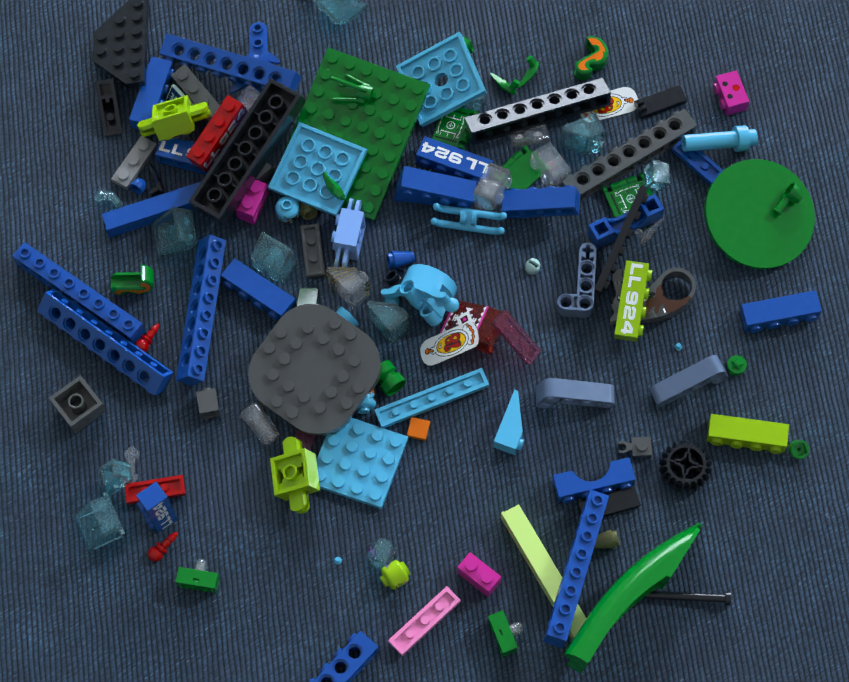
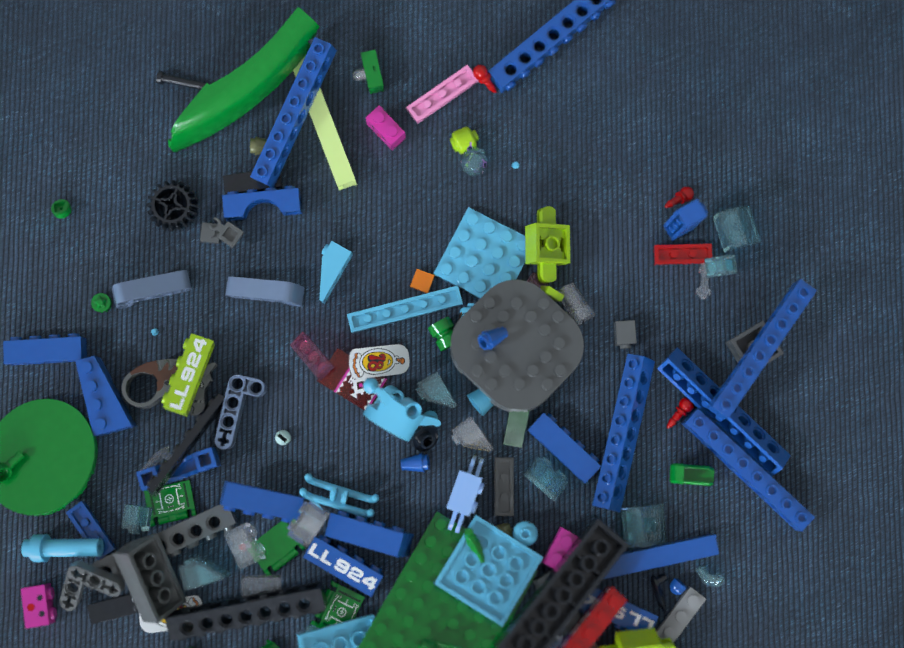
camera: 175 degrees left, 15 degrees up
(71, 394) = (761, 349): none -> blue brick
(198, 578) = (648, 161): green piece -> none
(286, 429) = (552, 293): none -> lime tile
(339, 364) = (491, 338): none -> blue cone
(383, 641) = (481, 73): none -> red bar
(621, 443) = (228, 234): none -> dark grey plate
(631, 123) = (150, 578): none -> dark grey slope
(694, 118) = (80, 579): none -> dark grey beam
(713, 274) = (102, 398): none -> blue wedge
(747, 433) = (106, 230): lime brick -> none

